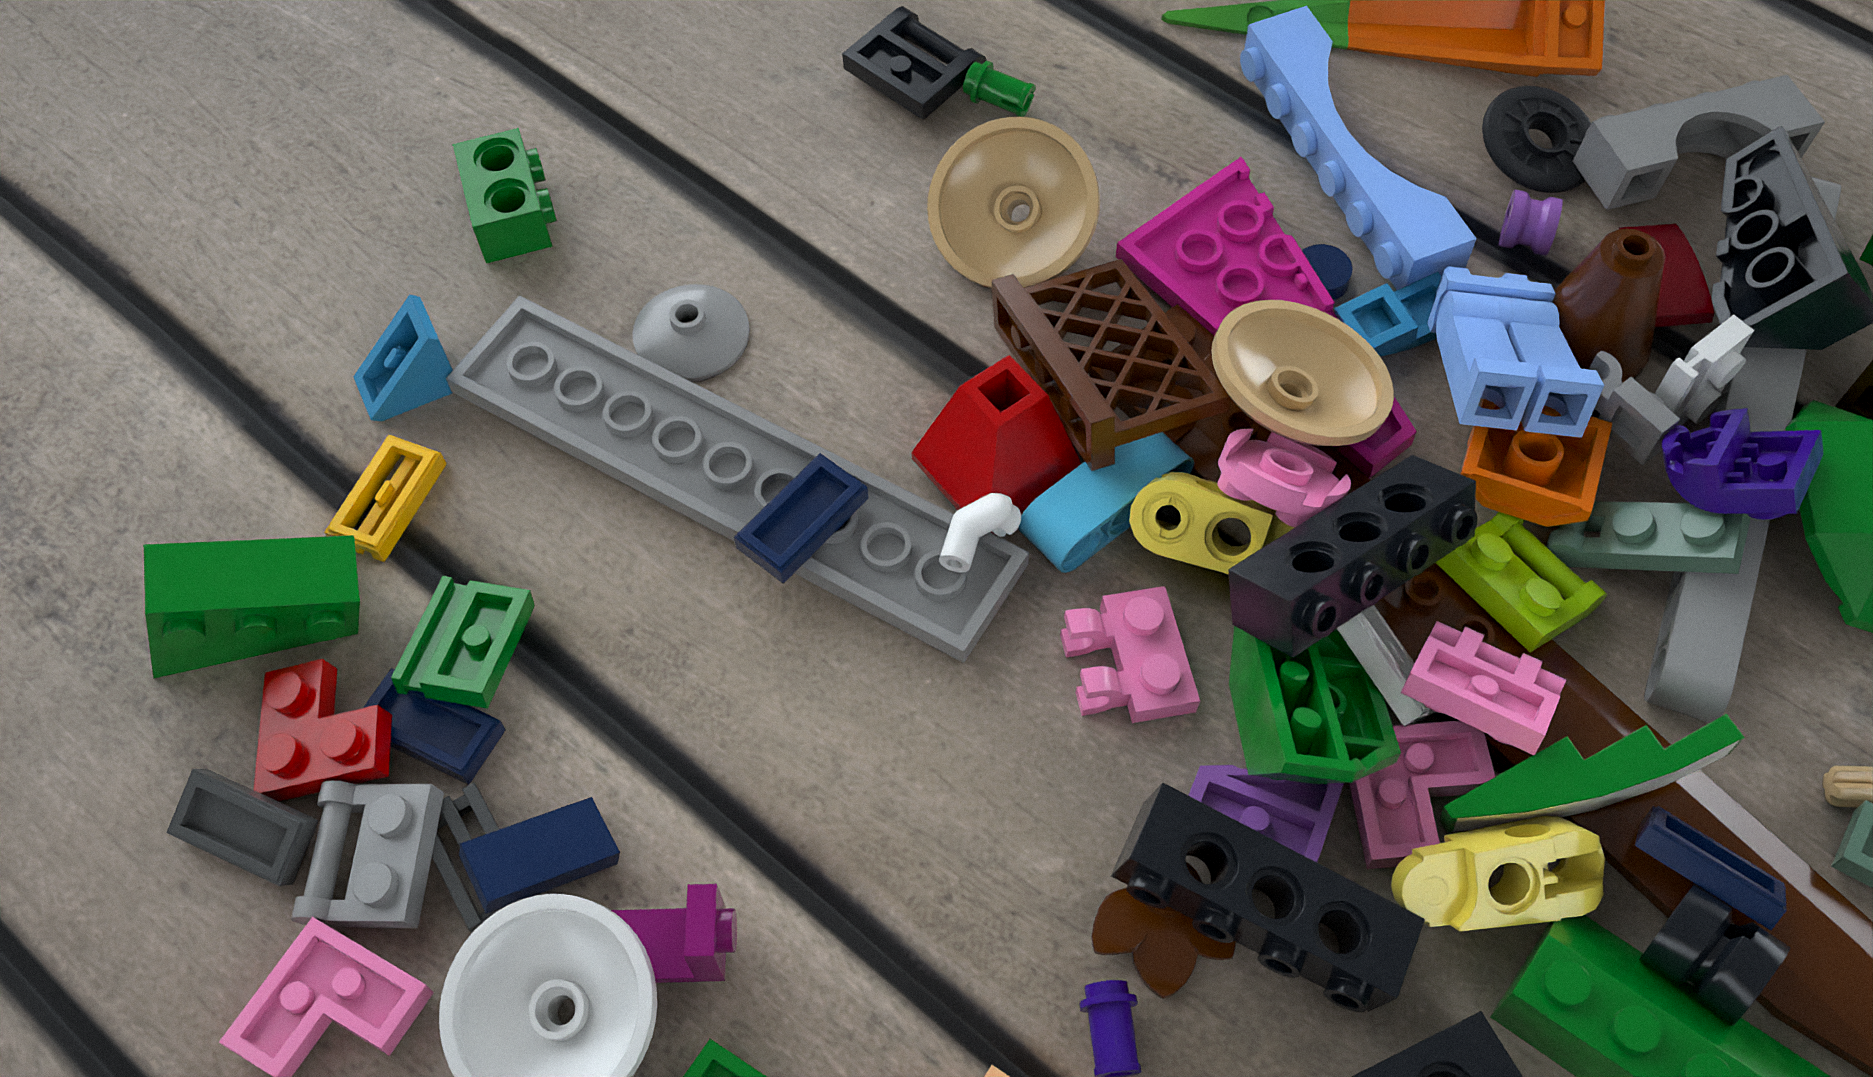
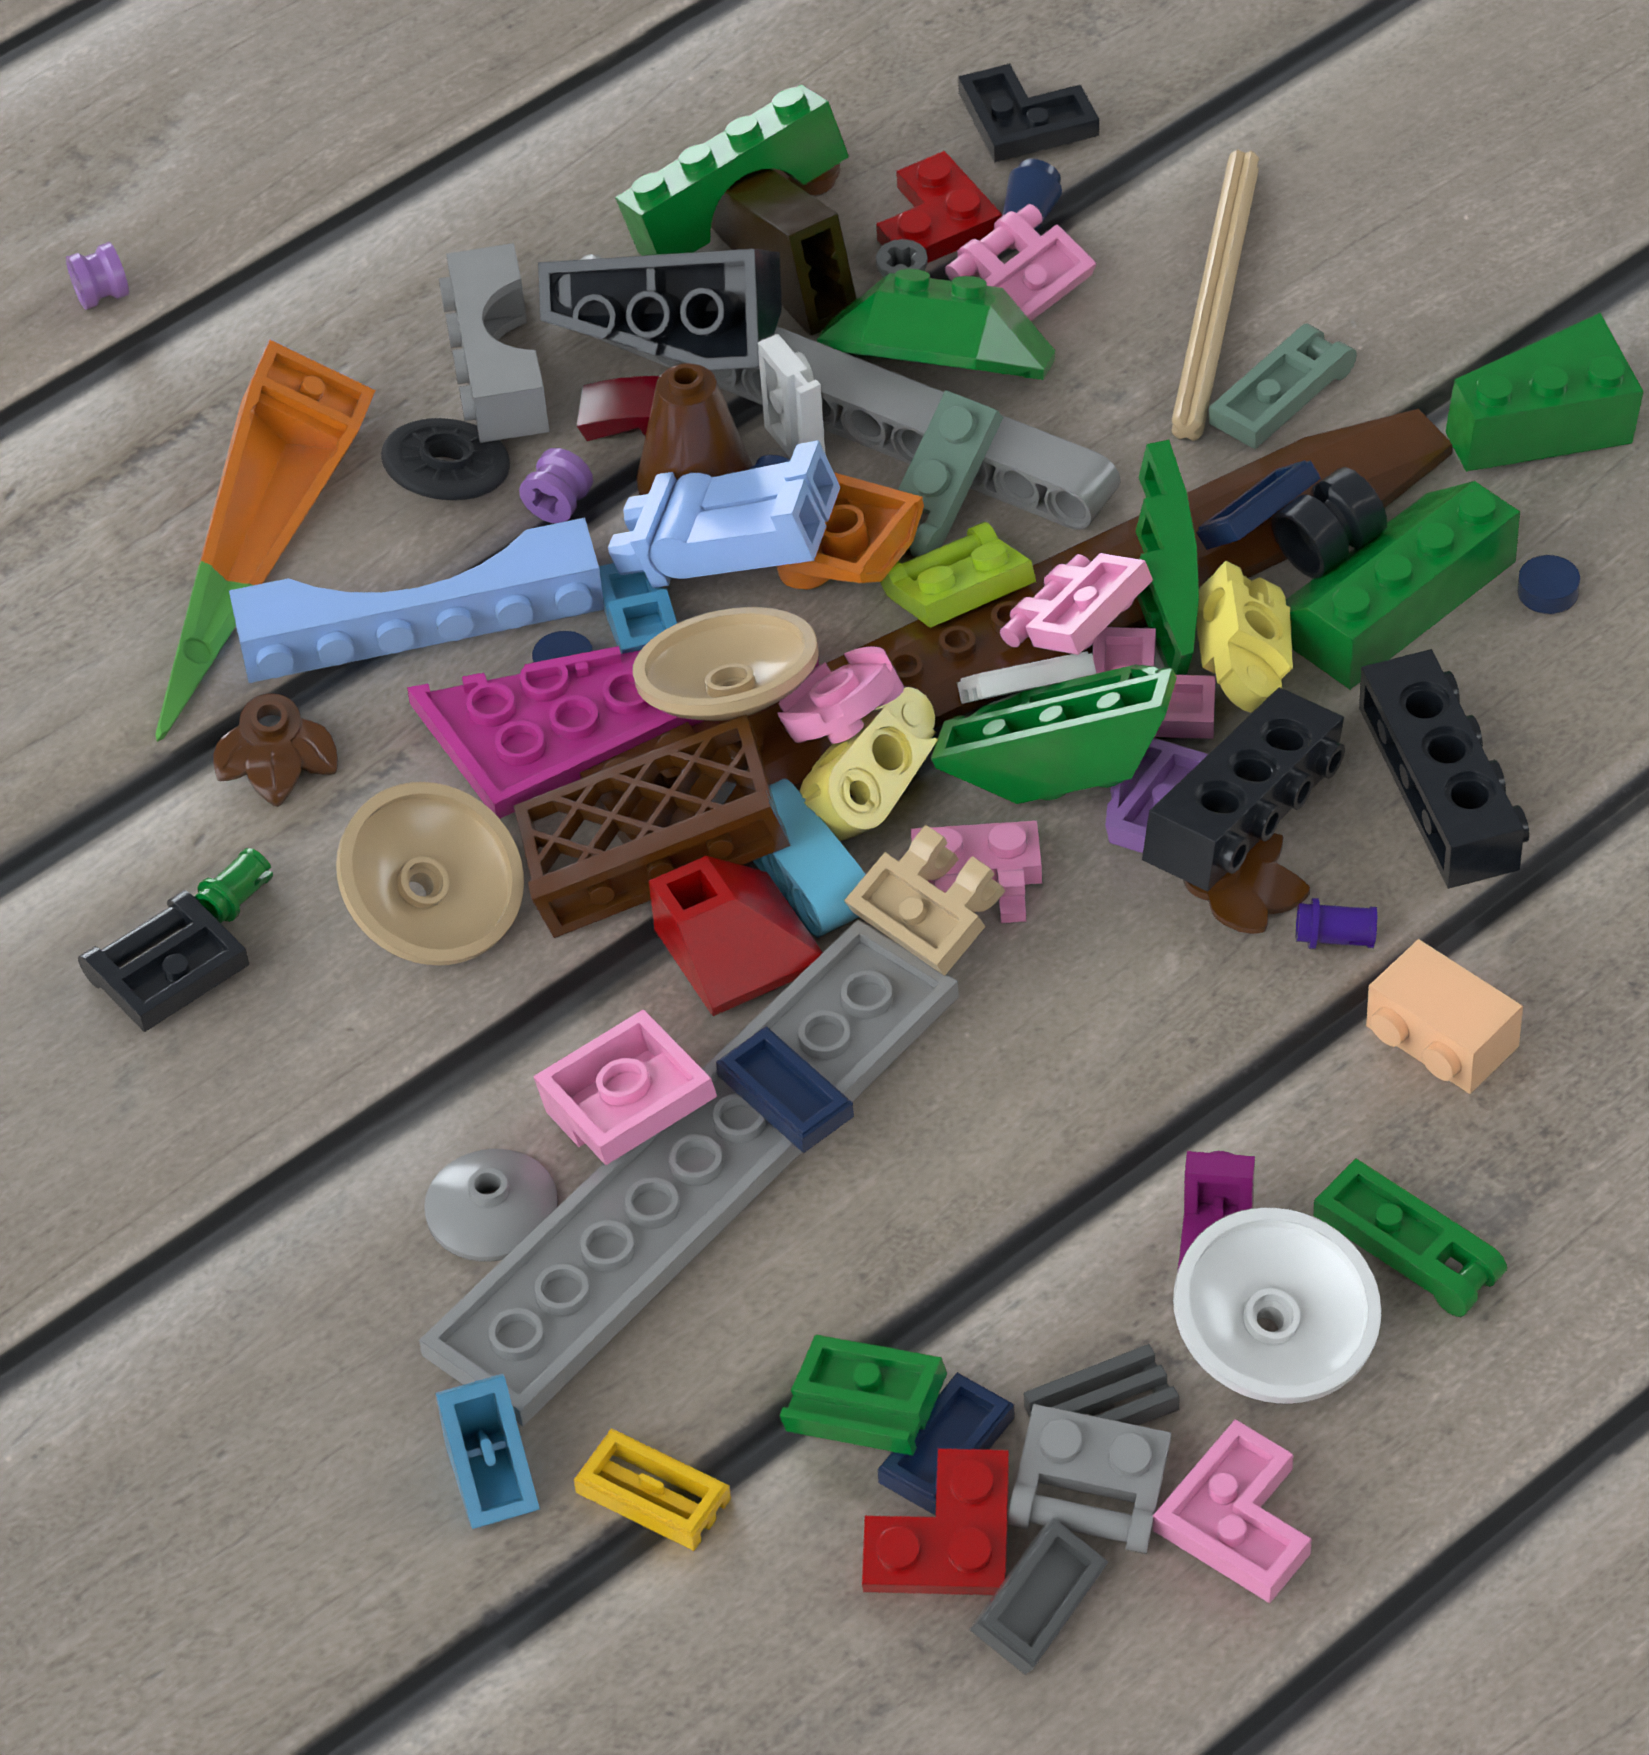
camera: 80 degrees left, 10 degrees down
(246, 598) = (783, 1594): green wedge -> none
(503, 194) = (256, 1371): green brick -> none
(538, 854) = (1114, 1331): dark blue tile -> none
(787, 389) = (623, 1087): none -> bright pink plate
(973, 521) = (825, 949): white arm -> none
(1027, 591) = (917, 913): none -> tan plate
(1157, 89) = (276, 753): none -> reddish brown plate
(1352, 554) = (941, 654): black brick -> none
(1637, 415) = (837, 435): light grey plate -> none
(1742, 470) = (909, 380): dark purple slope -> none

